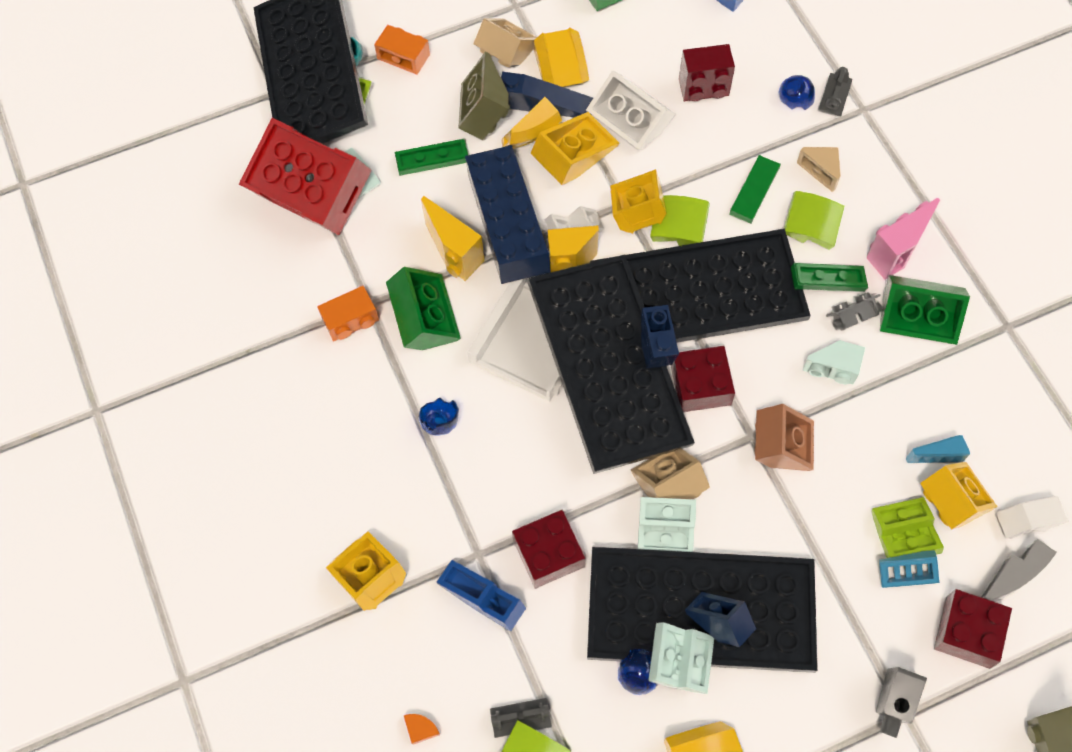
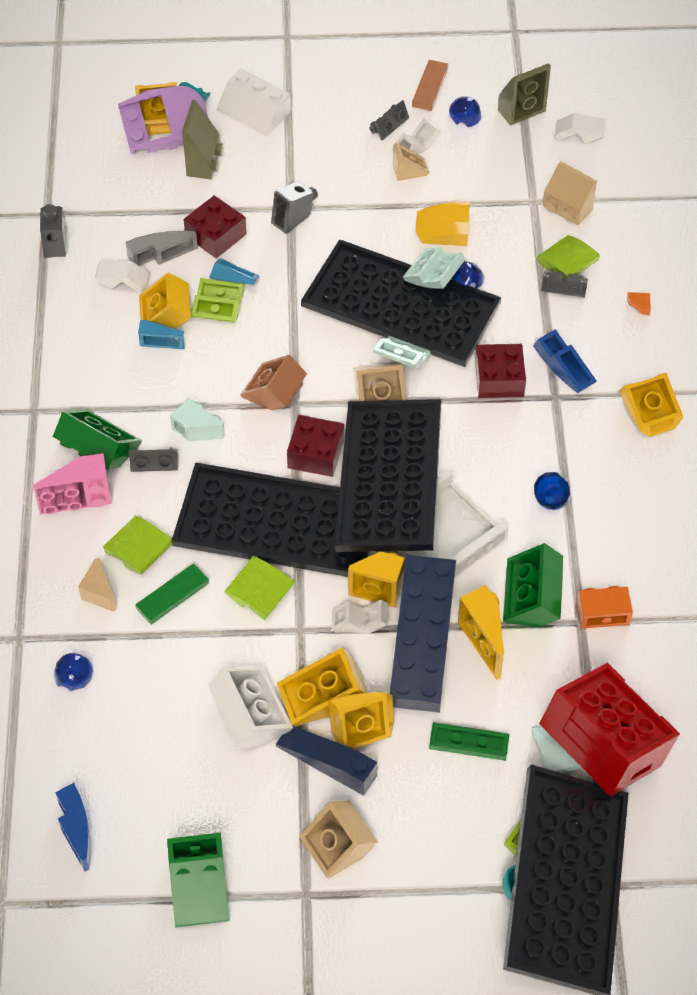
camera: 160 degrees left, 10 degrees down
(402, 49) = (456, 871): orange brick -> none
(482, 99) = (397, 764): olive slope -> none
(561, 57) = (291, 793): yellow slope -> none
(638, 202) = (290, 613): yellow slope -> none
(658, 337) = (343, 458): dark blue slope -> none
(706, 72) = (156, 706): dark red brick -> none
(722, 618) = (394, 278): dark blue slope -> none
(829, 277) = (158, 488): green tile -> none
(836, 92) = (37, 656): dark grey hinge -> none

